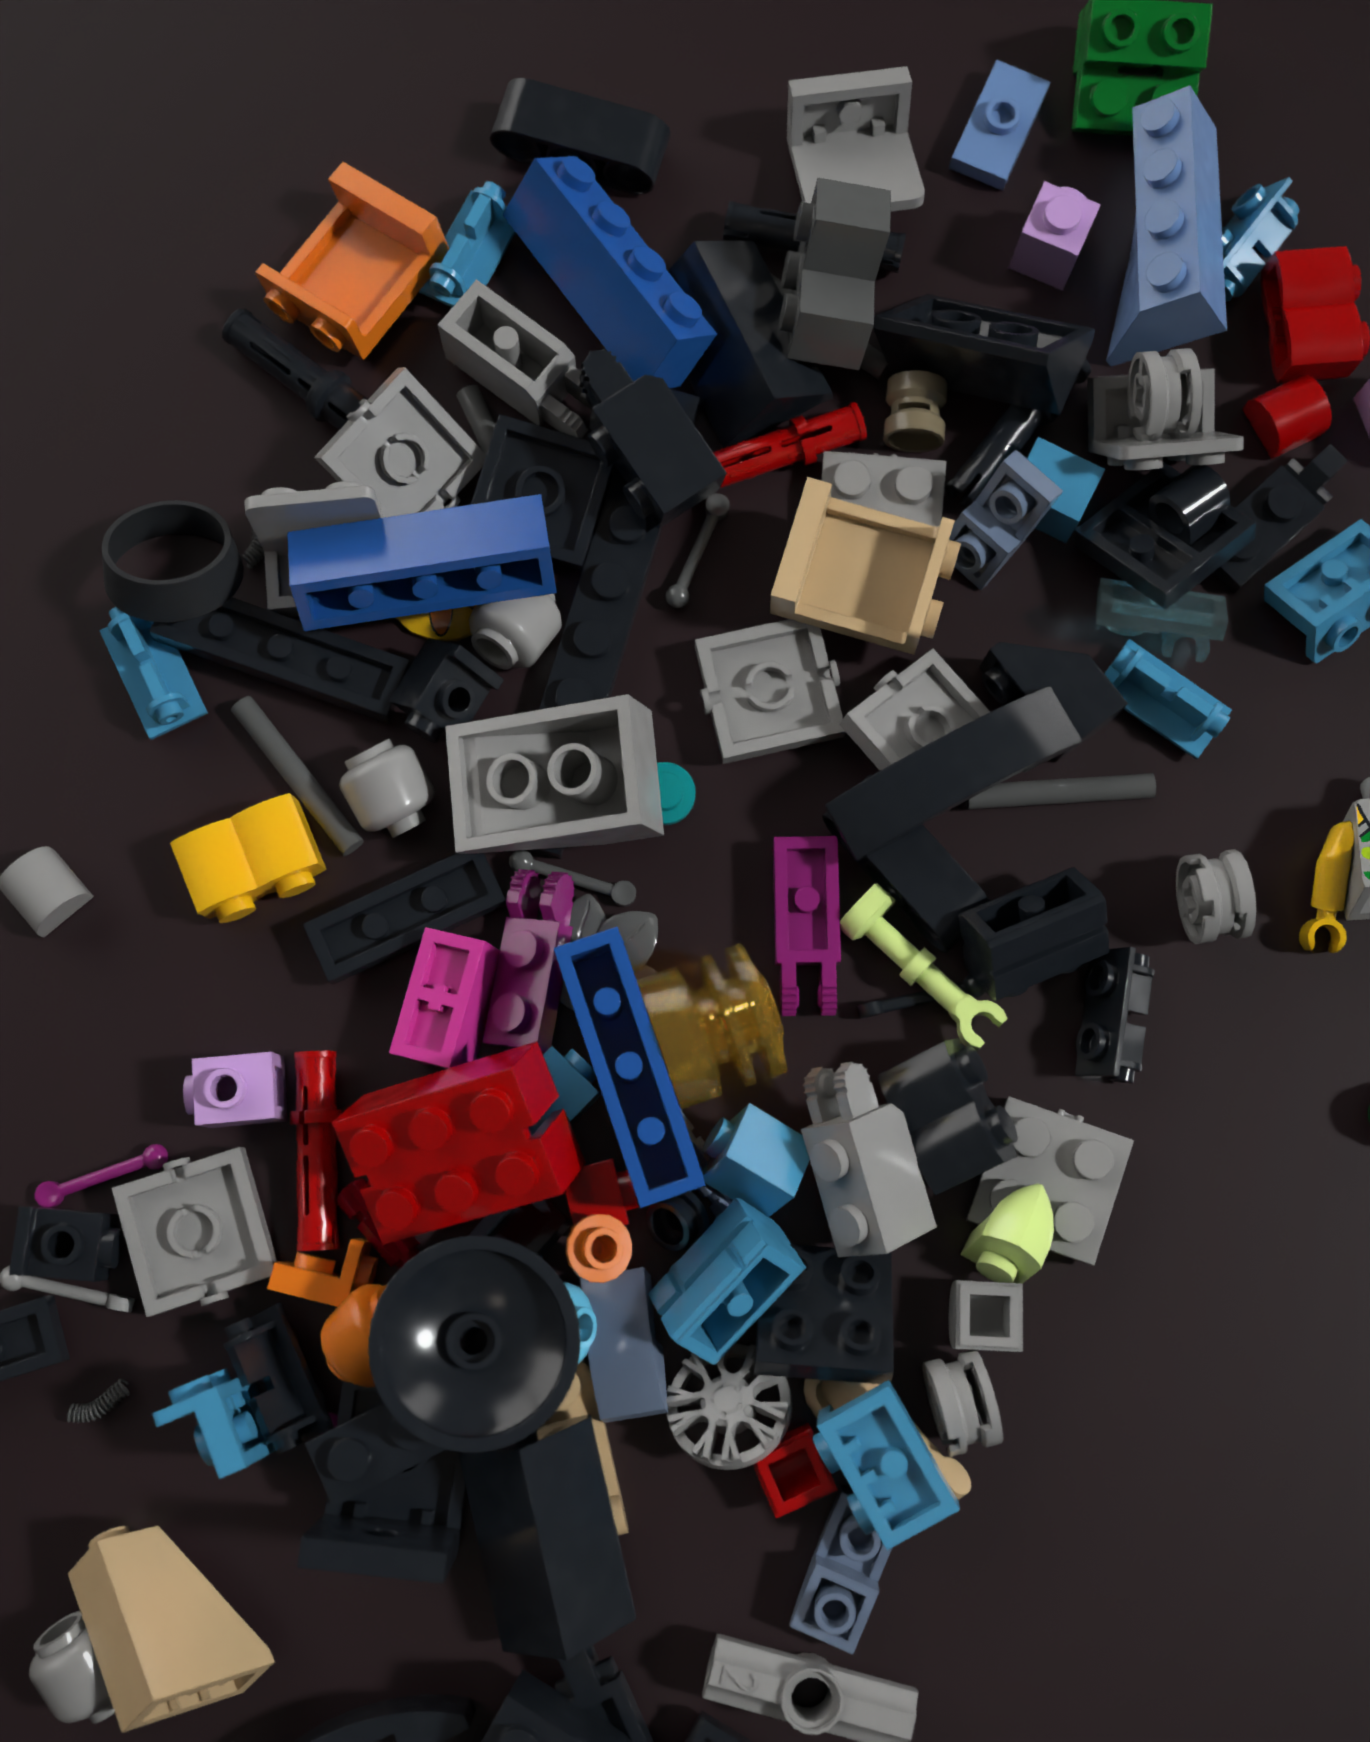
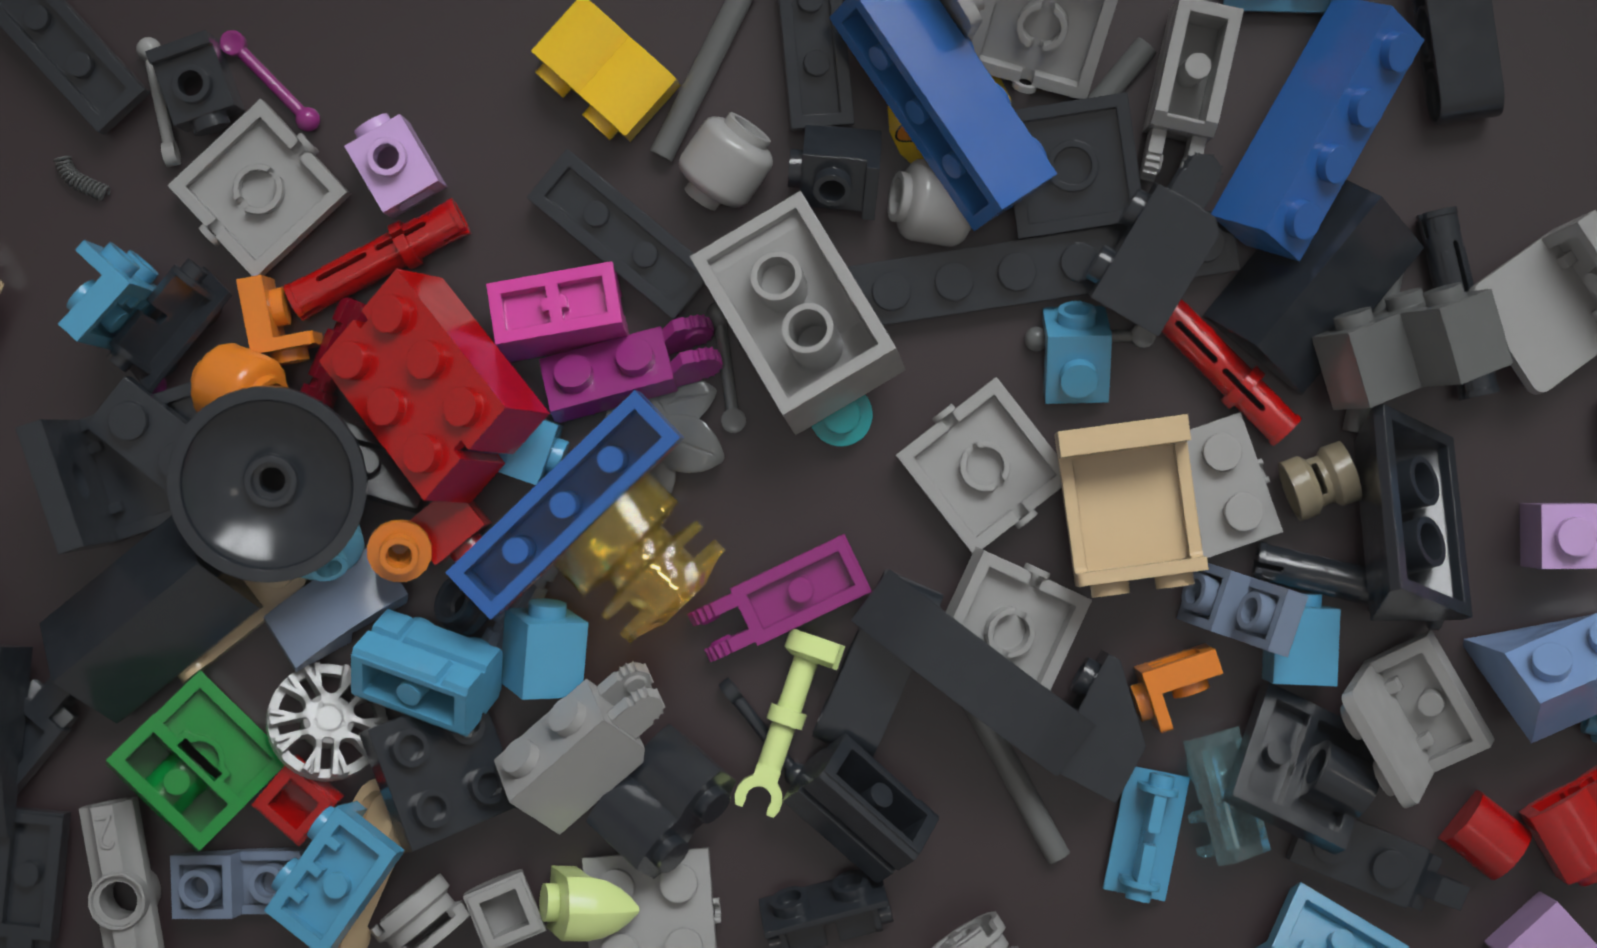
camera: 70 degrees right, 10 degrees up
(708, 564) = (1076, 353): none -> dark azure bracket
(723, 1584) = (174, 783): none -> green brick
(1032, 605) = (1181, 673): none -> orange bracket
(1165, 394) = (1433, 711): light grey wheel -> none

